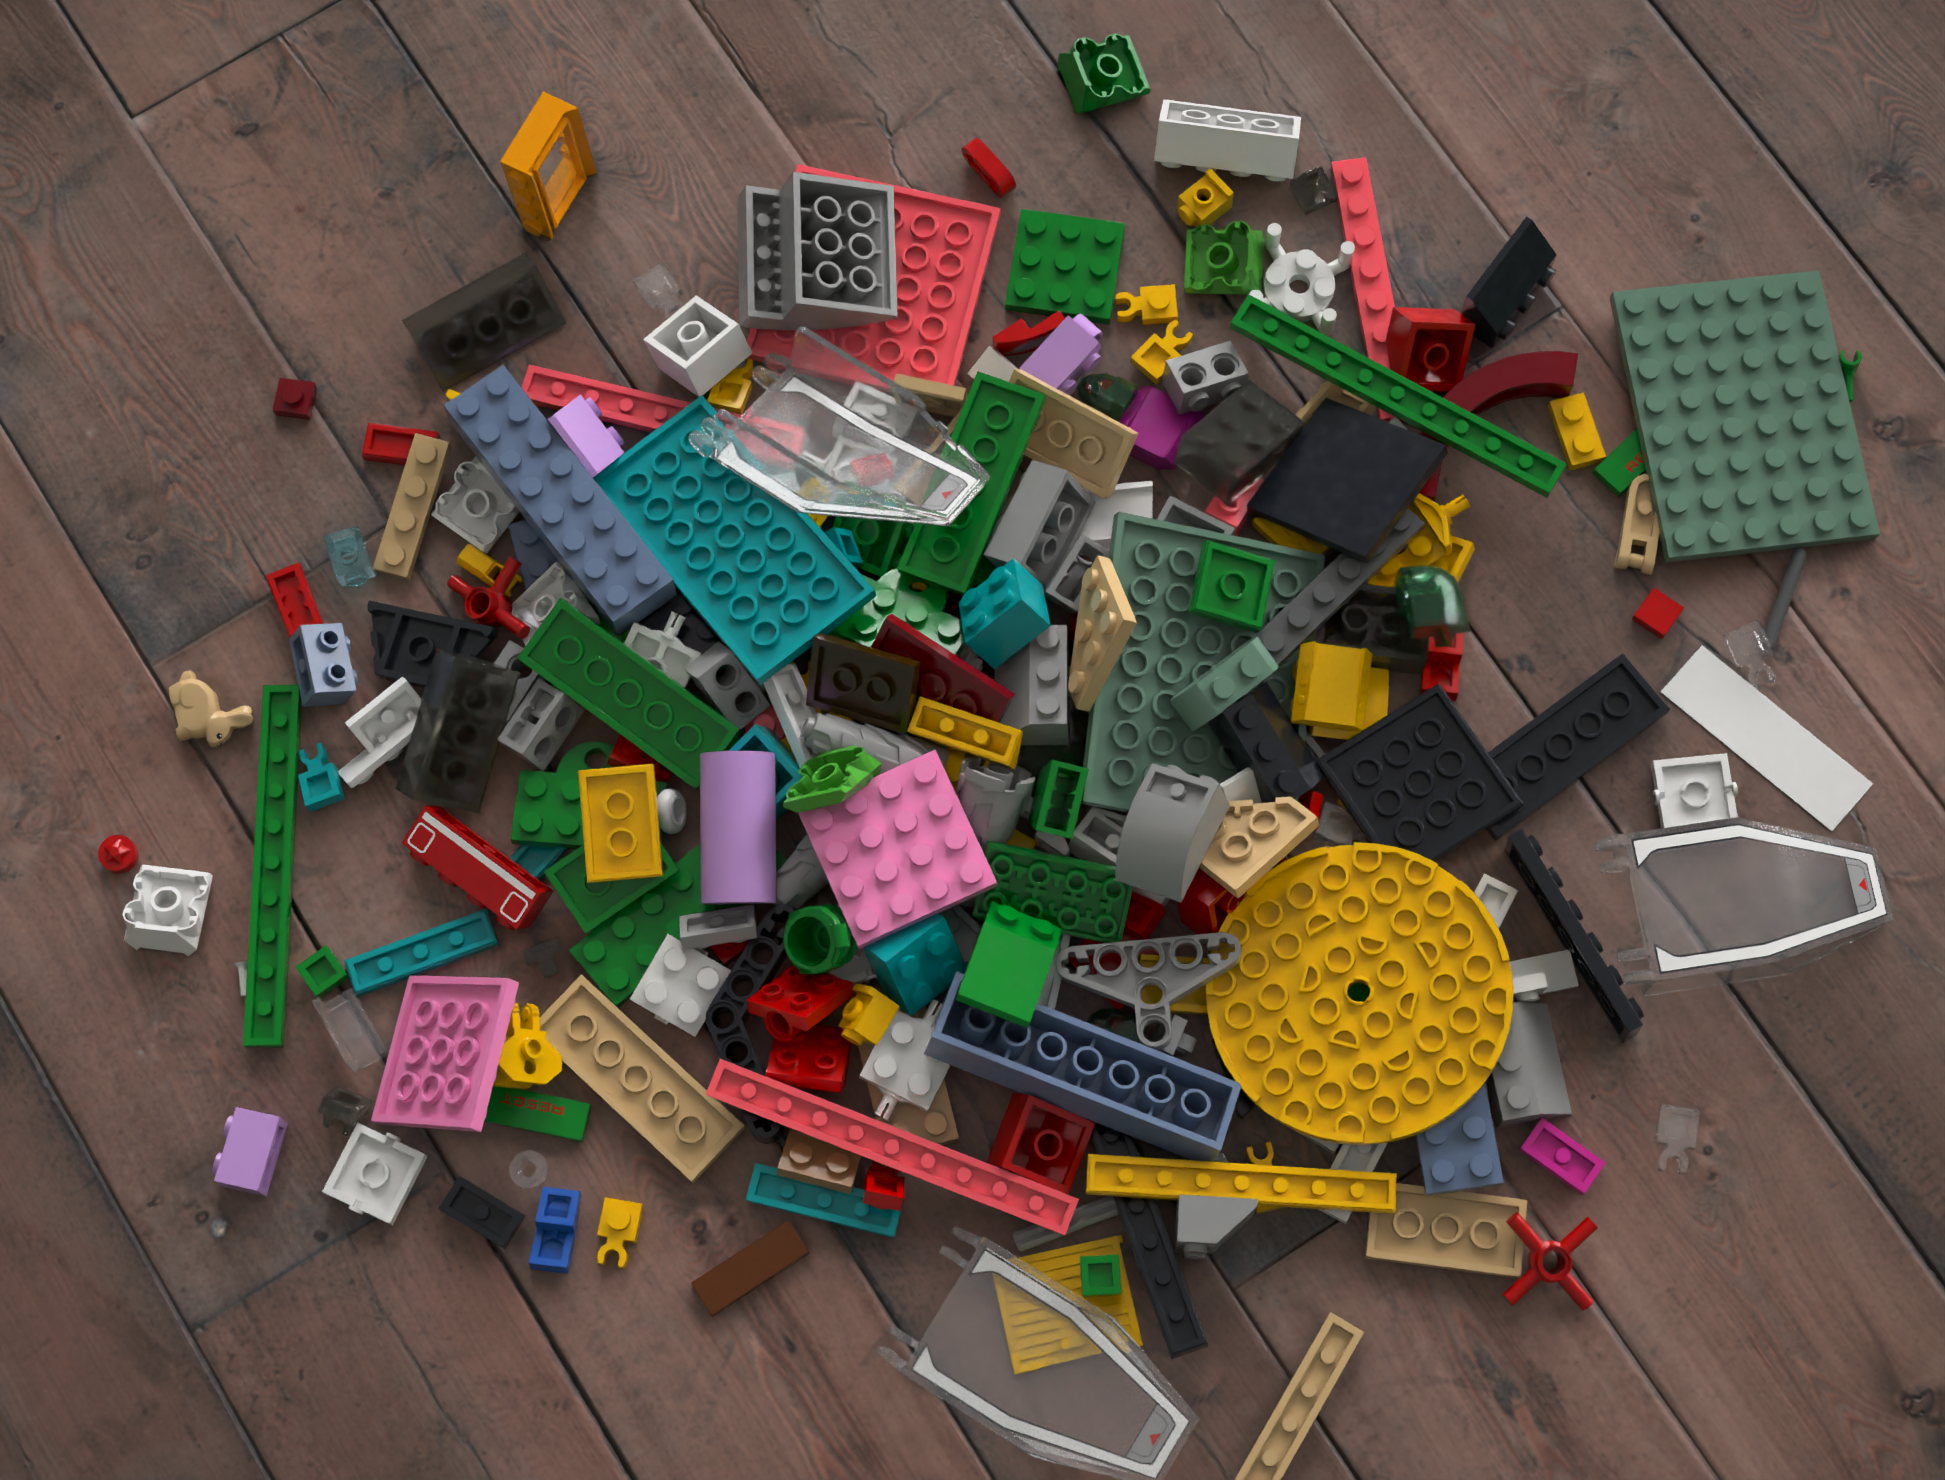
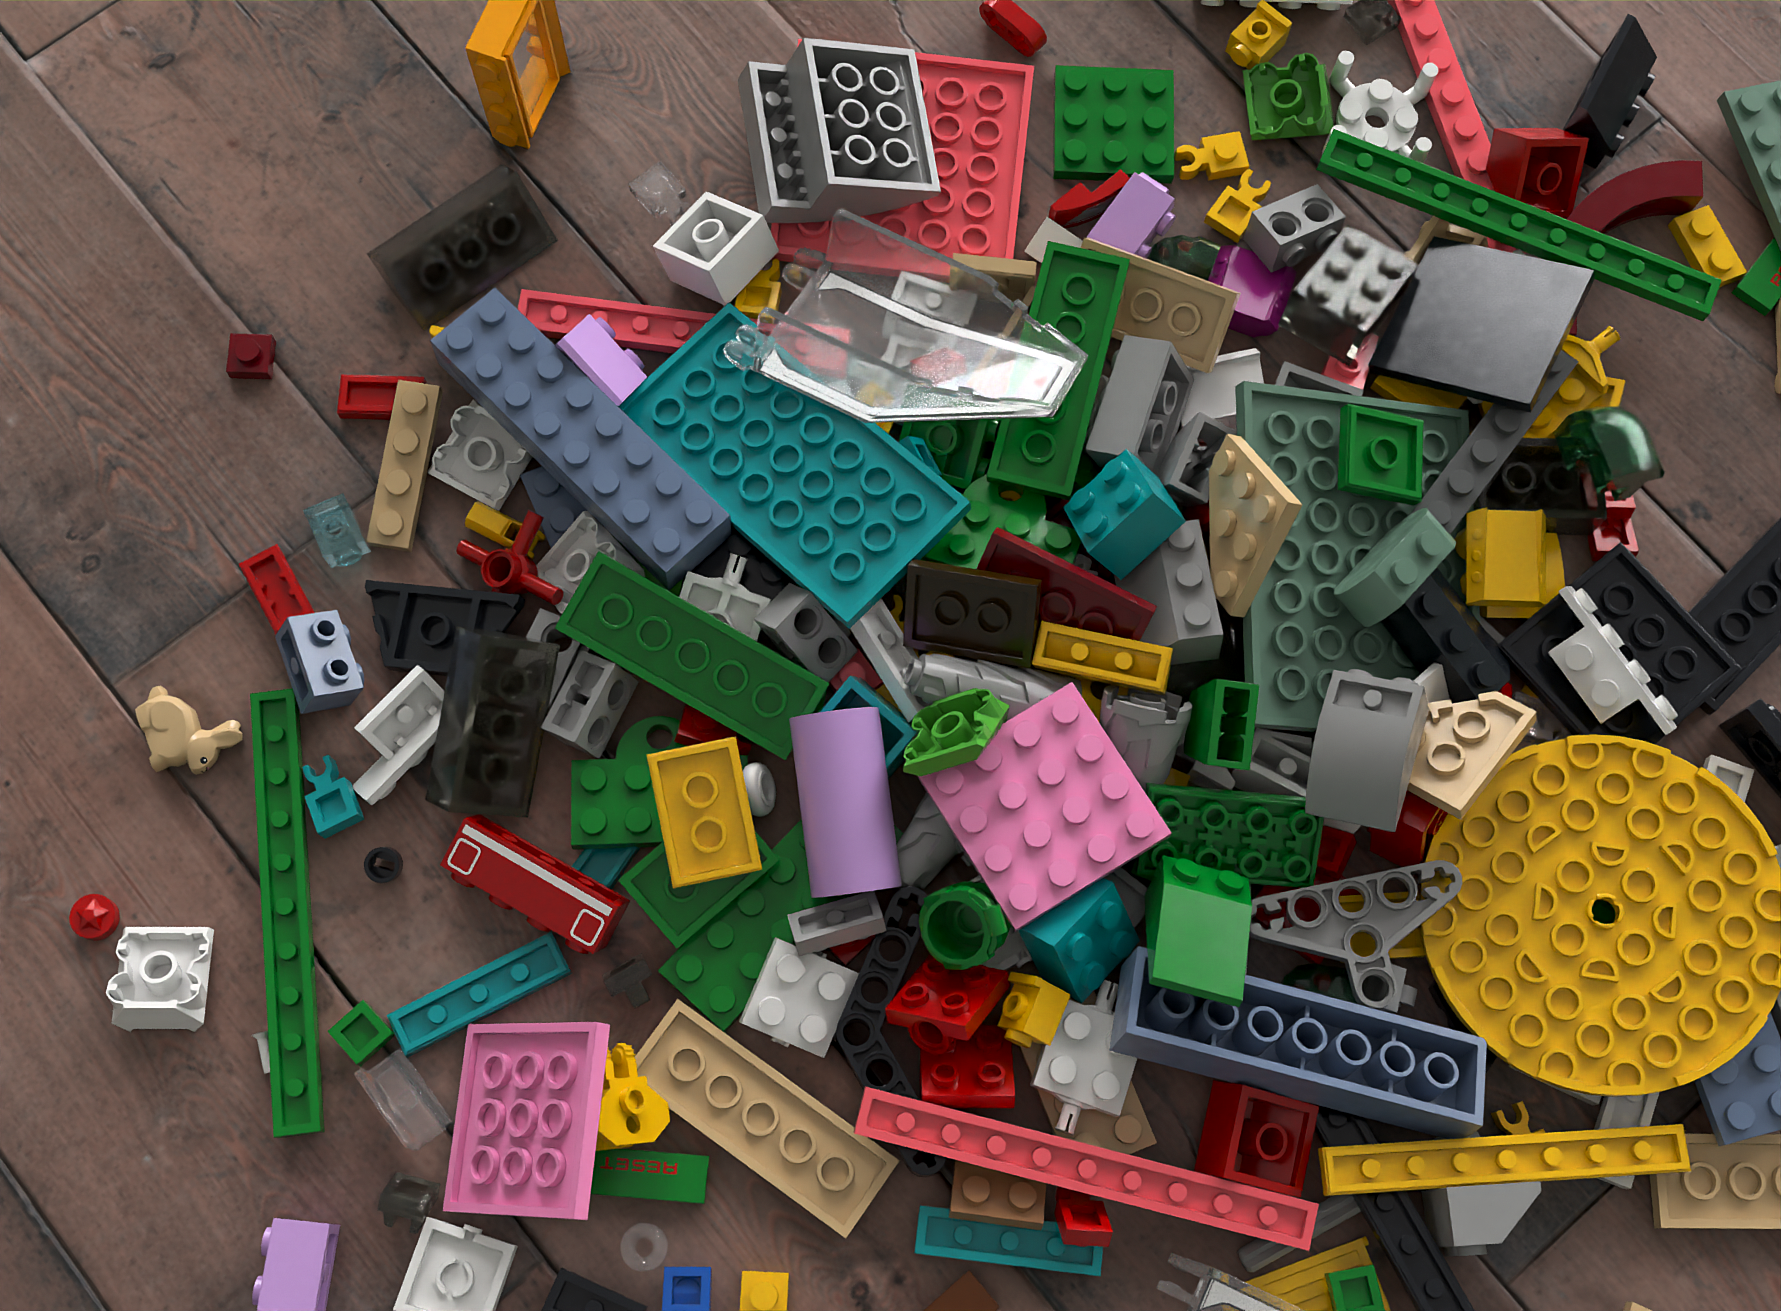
camera: 15 degrees left, 0 degrees up
(352, 845) = (383, 874): none -> black hinge
(1397, 789) = (1600, 669): none -> white bracket

